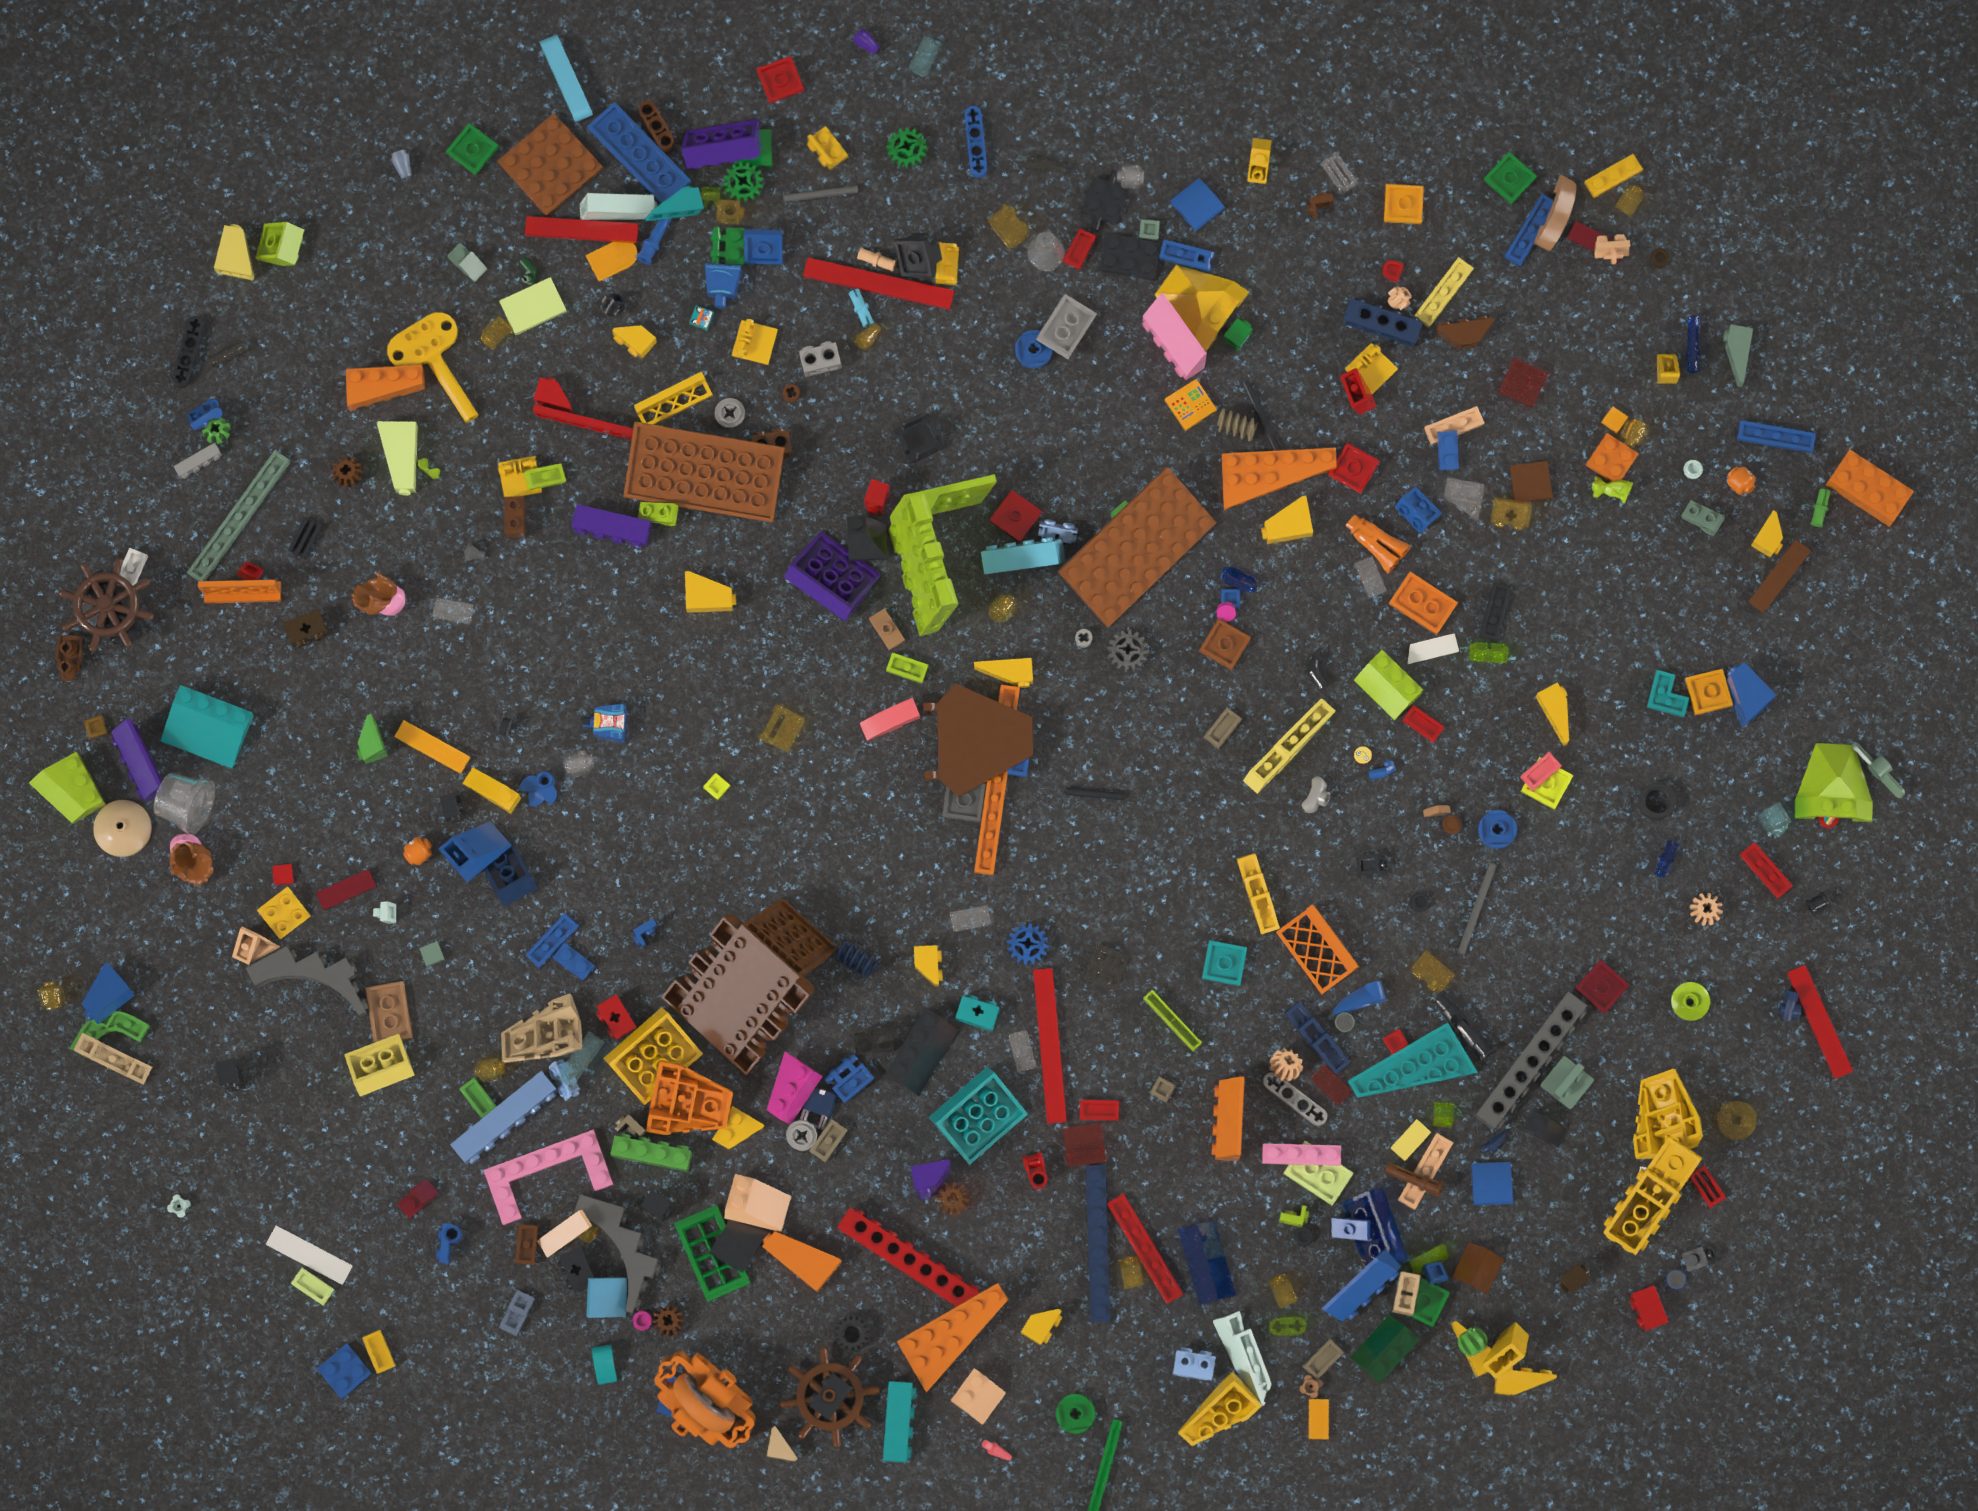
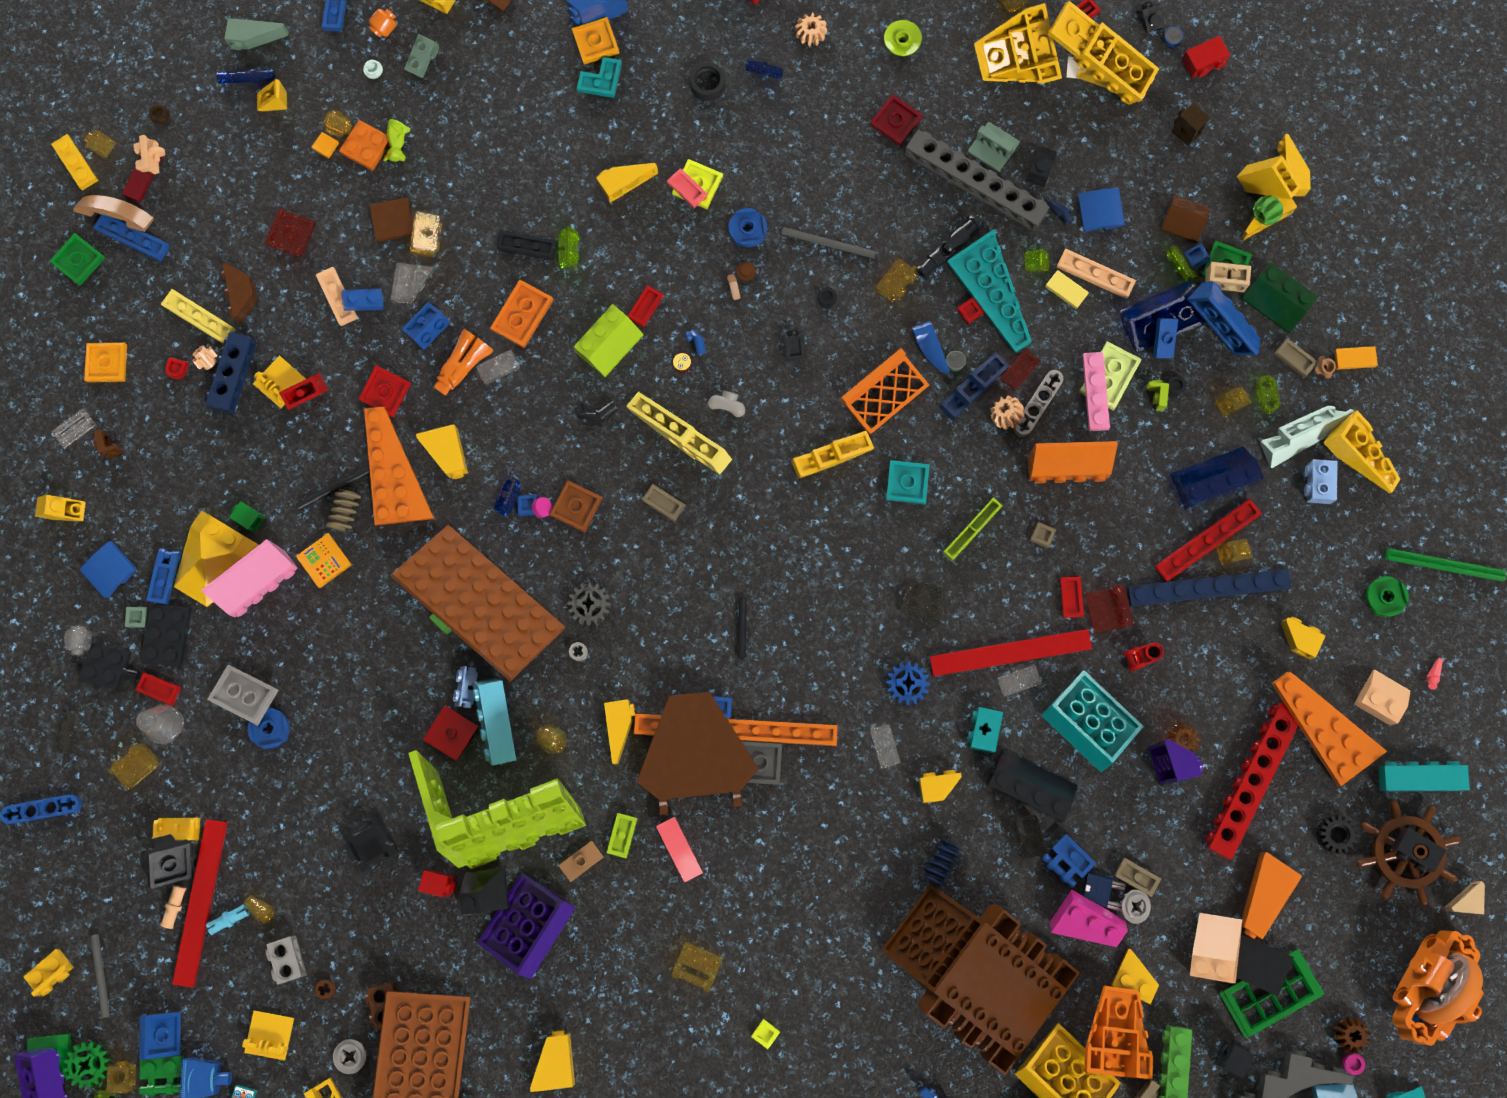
camera: 90 degrees left, 0 degrees up
(900, 151) = (54, 890): green gear -> none
(1422, 1182) = (1110, 271): reddish brown pin -> none
(1432, 648) = (567, 303): white sticker -> none

